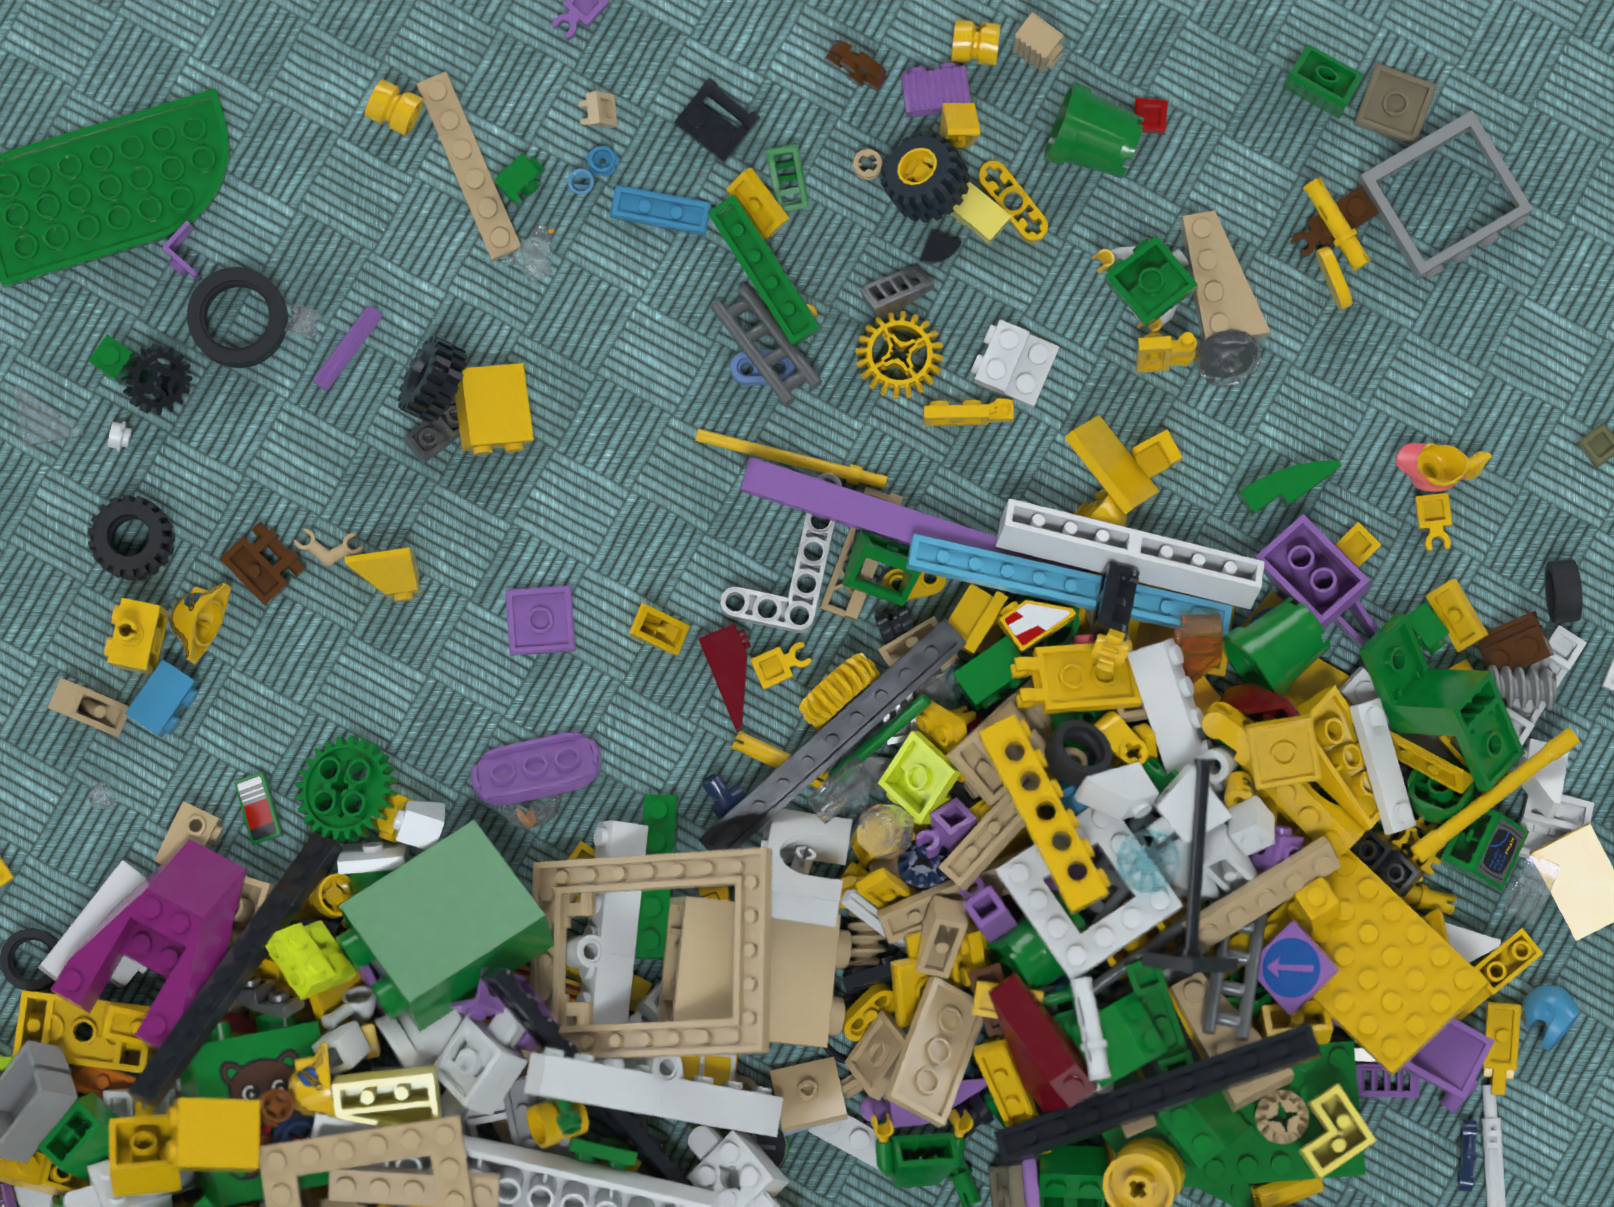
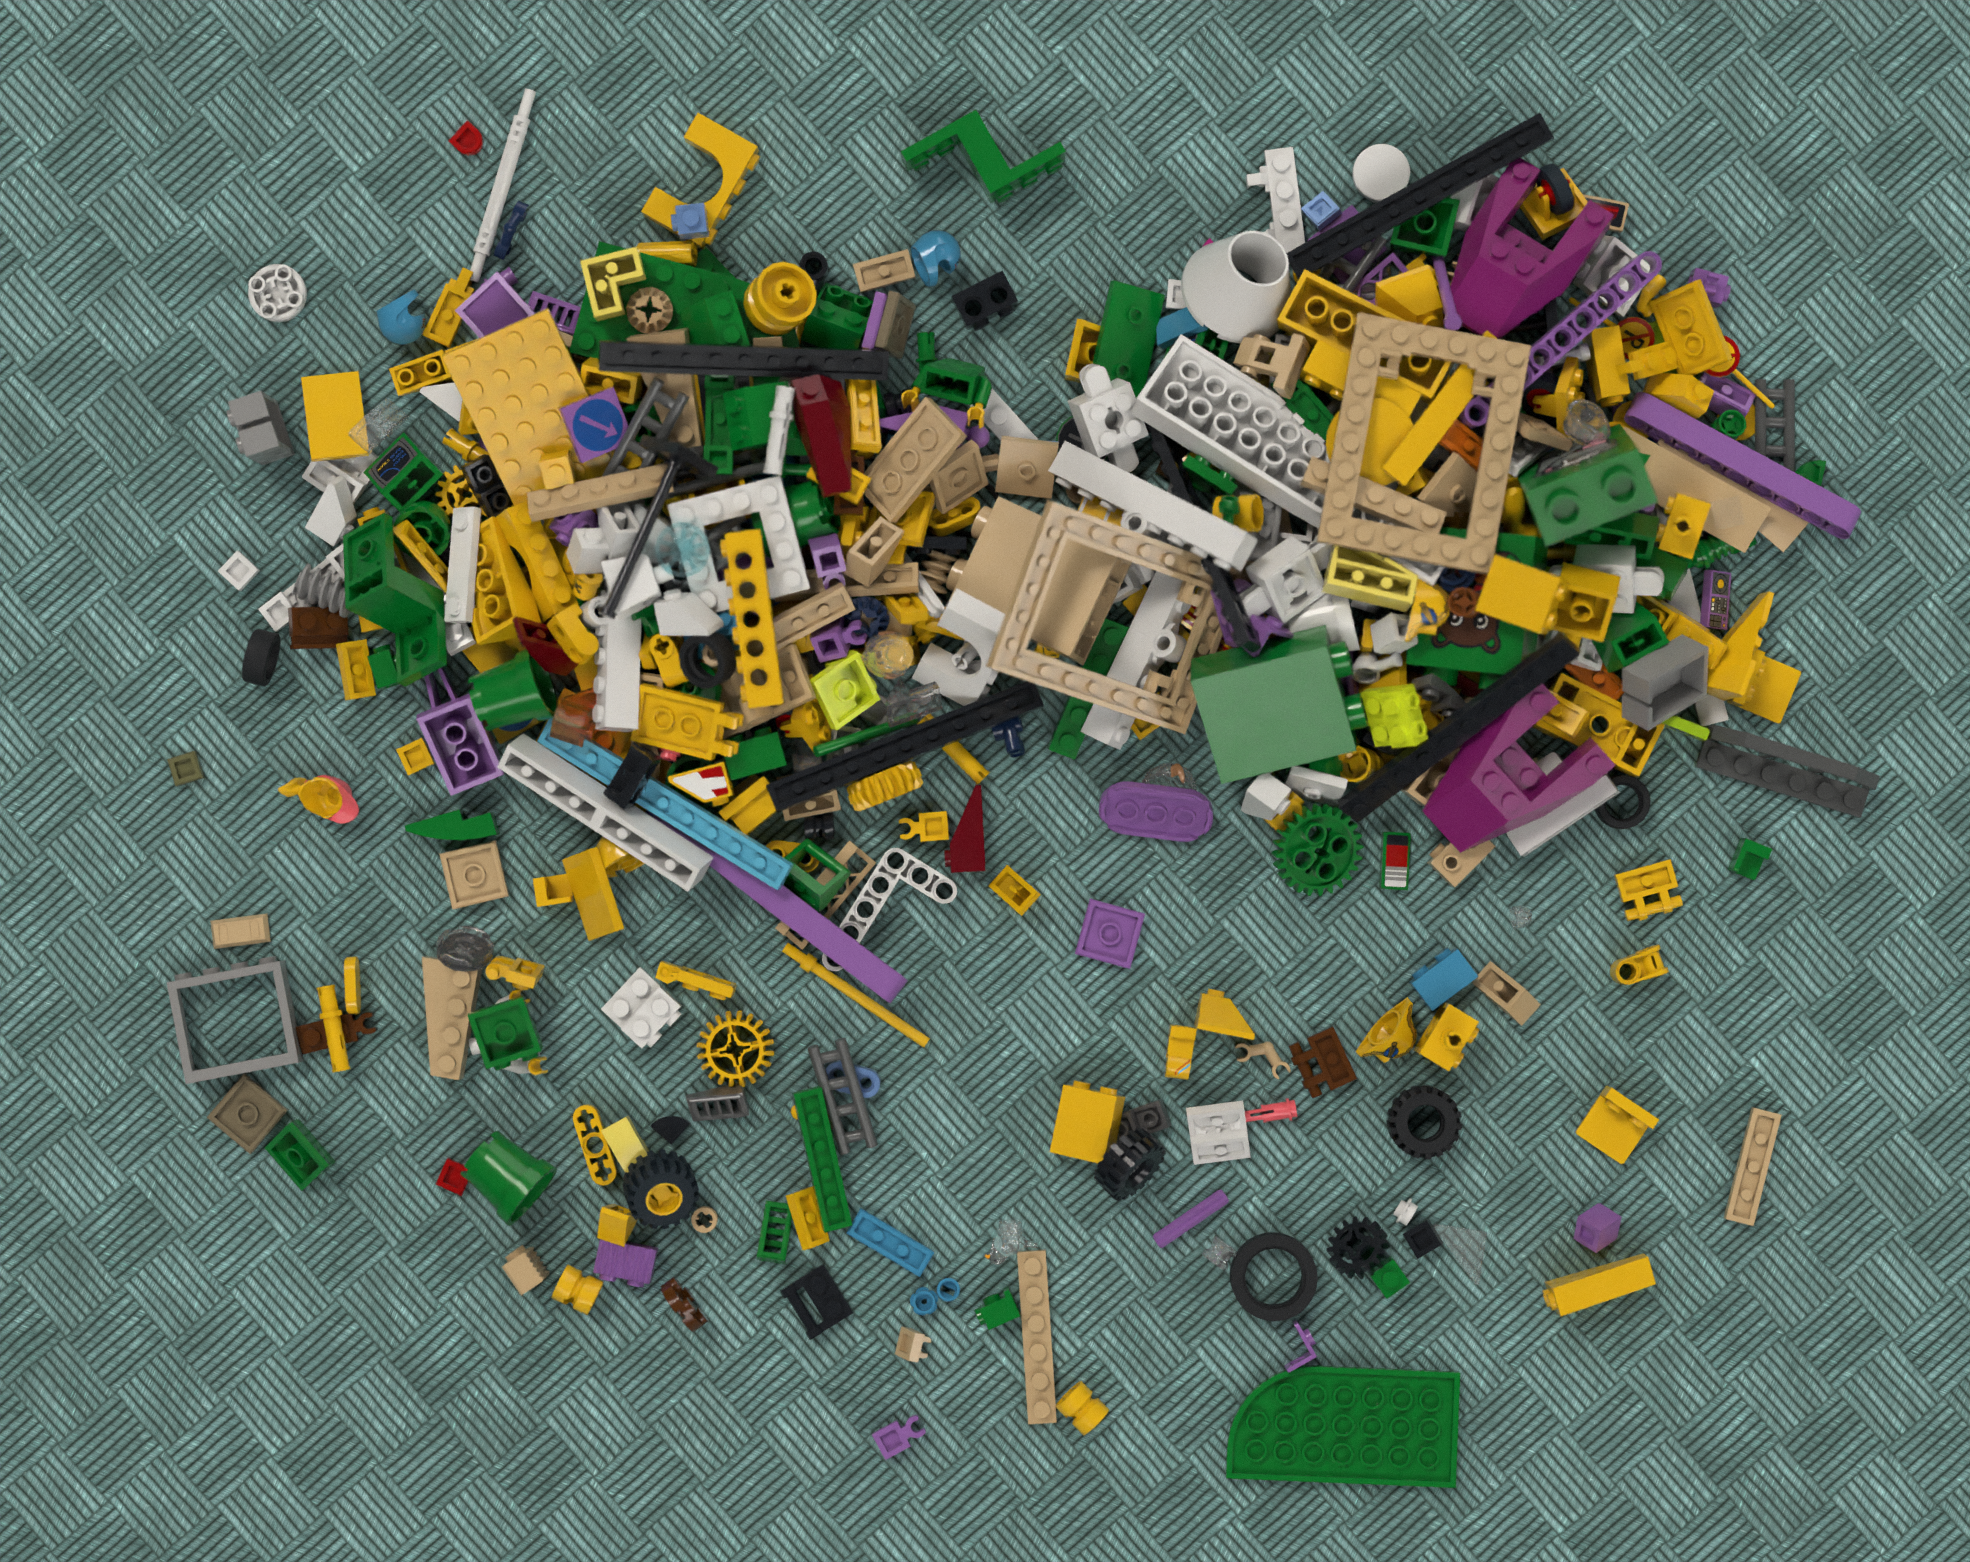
camera: 160 degrees left, 5 degrees up
(90, 413) = (1423, 1238): none -> black plate
(289, 497) = (1280, 1111): none -> coral pin
(349, 448) = (1218, 1132): none -> white slope
(421, 521) = (1179, 1051): none -> yellow leg
(1110, 650) = (650, 735): yellow gear -> none
(1247, 441) = (474, 874): none -> tan plate
(1283, 752) = (539, 600): yellow plate -> none
(1433, 514) = (344, 759): yellow plate -> none
(1475, 293) = (240, 931): none -> tan tile
(1550, 752) = (322, 526): yellow piece -> none

